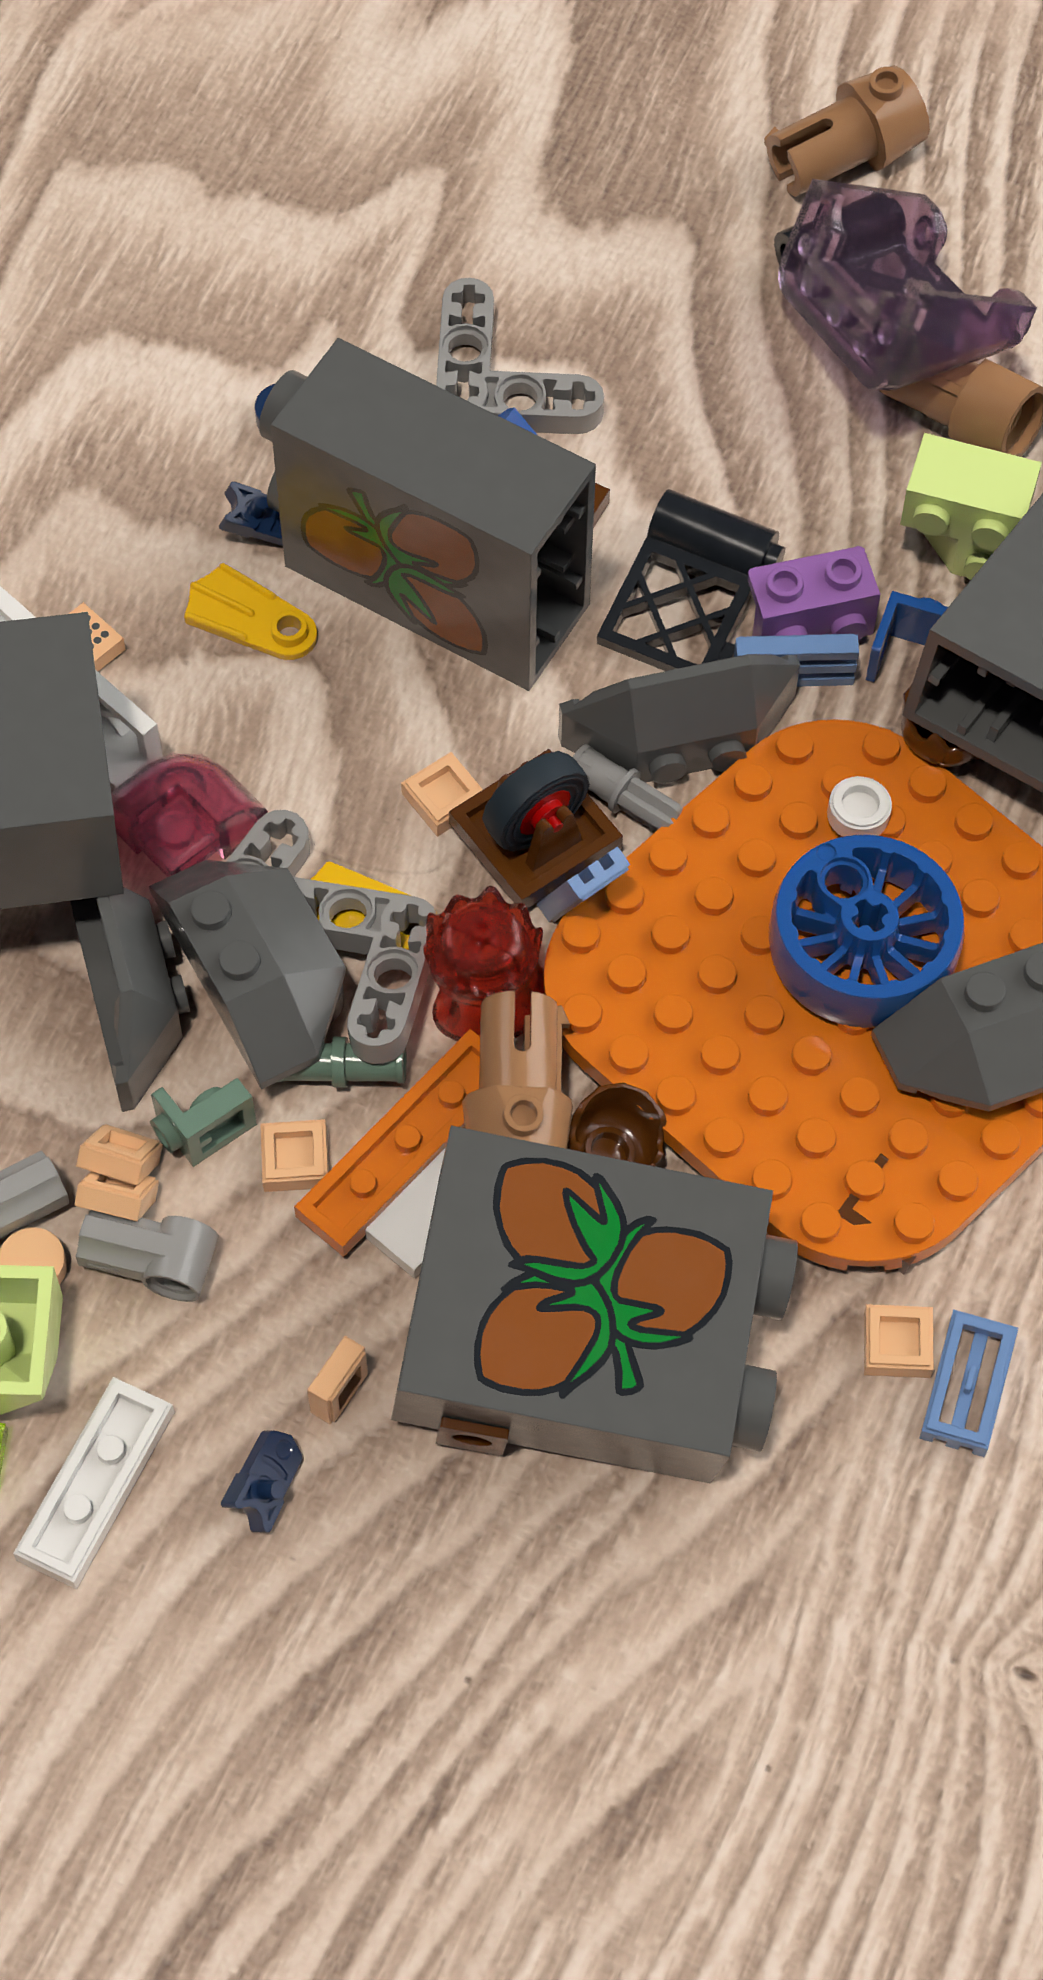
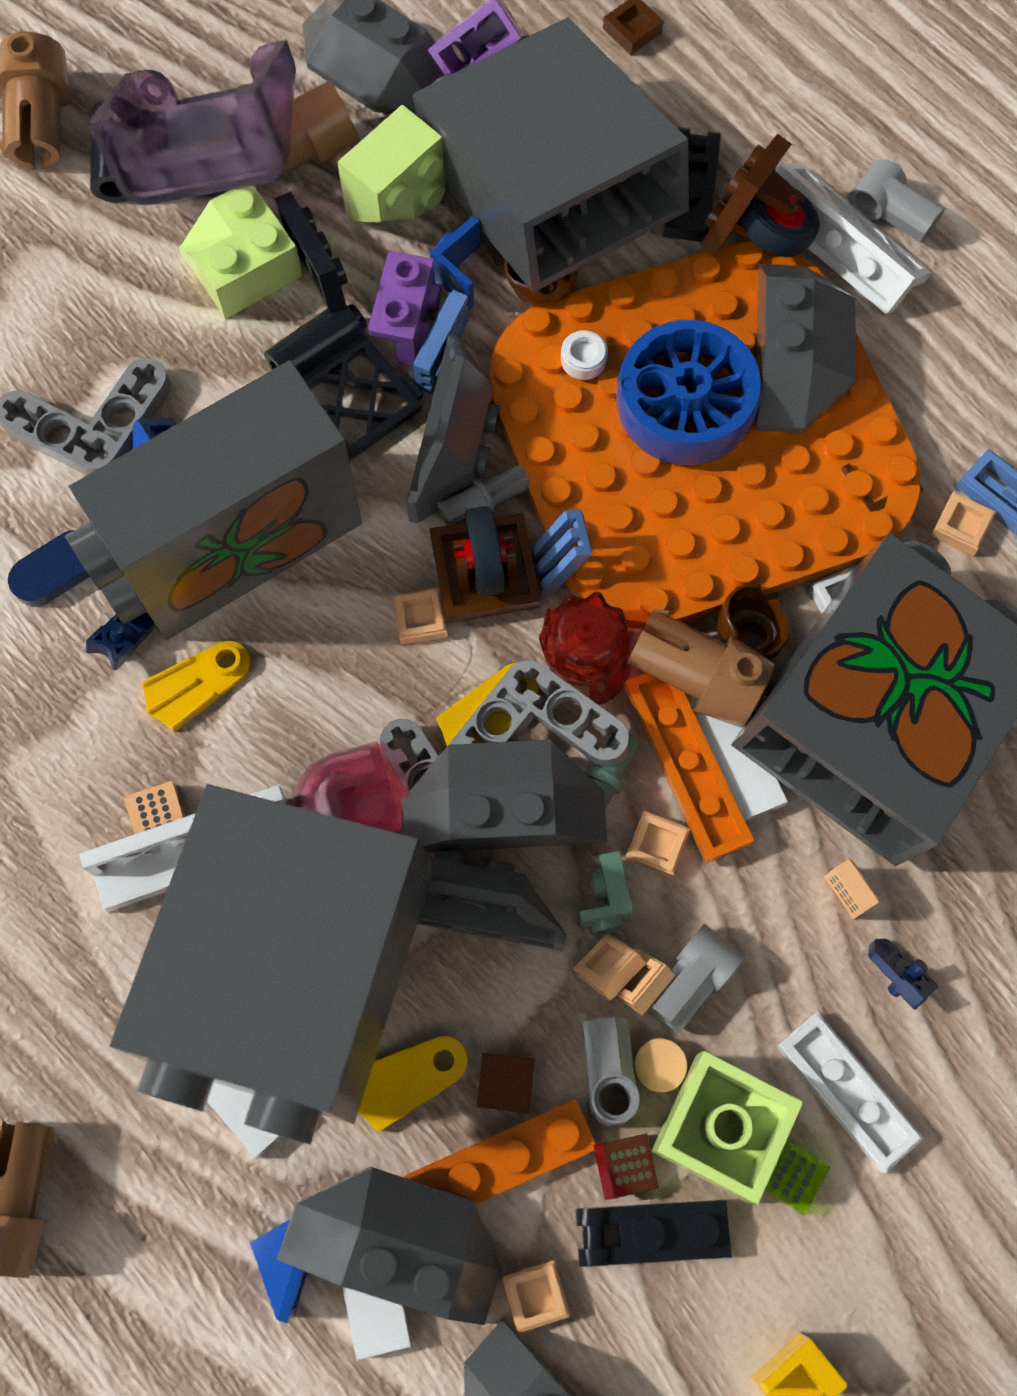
camera: 65 degrees left, 10 degrees up
(785, 414) = (240, 251): none -> yellowish green slope
(819, 474) = (313, 251): none -> black plate

